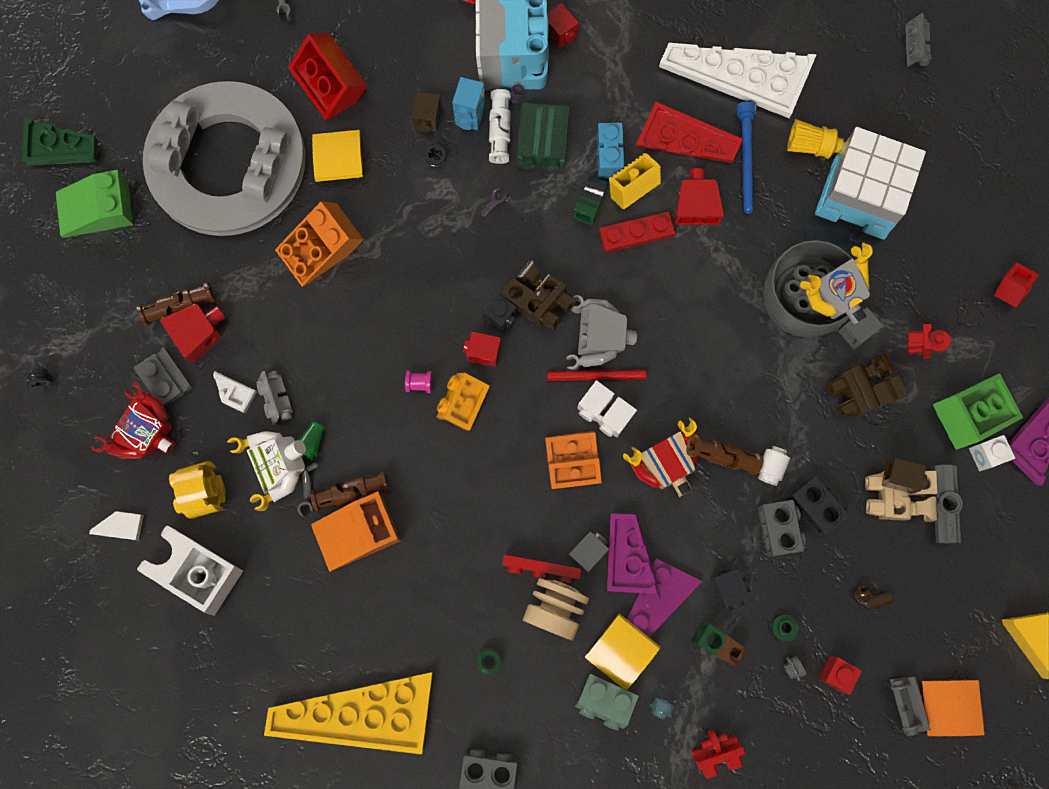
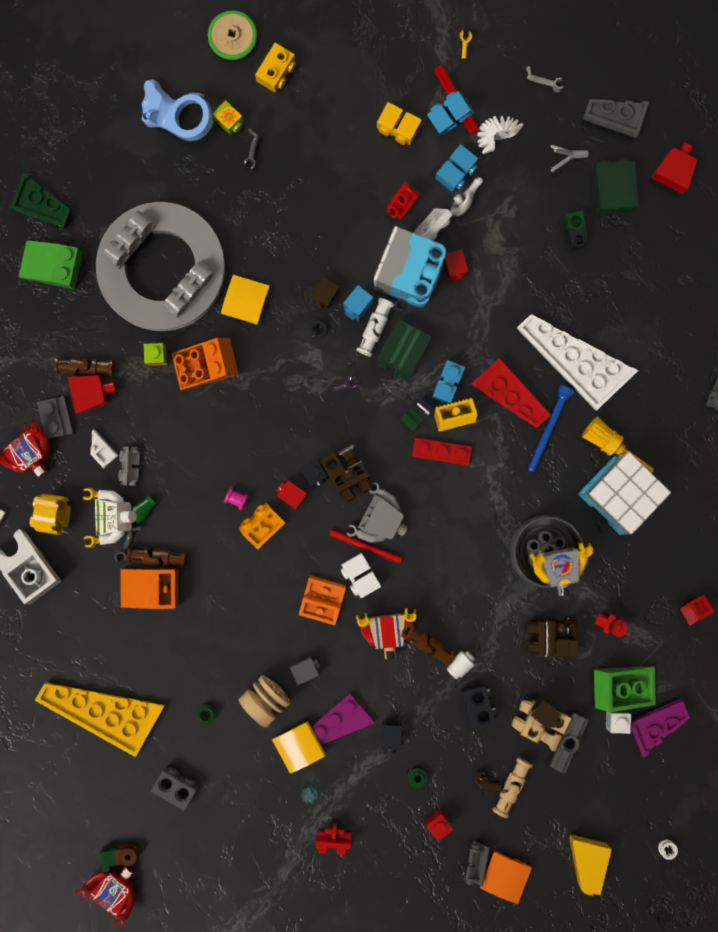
camera: 25 degrees right, 10 degrees up
(255, 255) = (155, 354): none -> lime brick
(326, 75) = (262, 231): red slope -> none
(541, 569) = (267, 667): red plate -> none
(606, 702) = (273, 775): sand green bracket -> none
(628, 557) = (331, 686): magenta wing -> none
(698, 201) = (496, 447): red torso -> none
(718, 644) = (366, 770): leg -> none
(774, 529) = (440, 710): dark grey brick -> none
(794, 668) = (411, 807): dark grey plate -> none
(861, 331) = (577, 594): dark grey brick -> none
(906, 594) = (511, 790): none -> tan piece

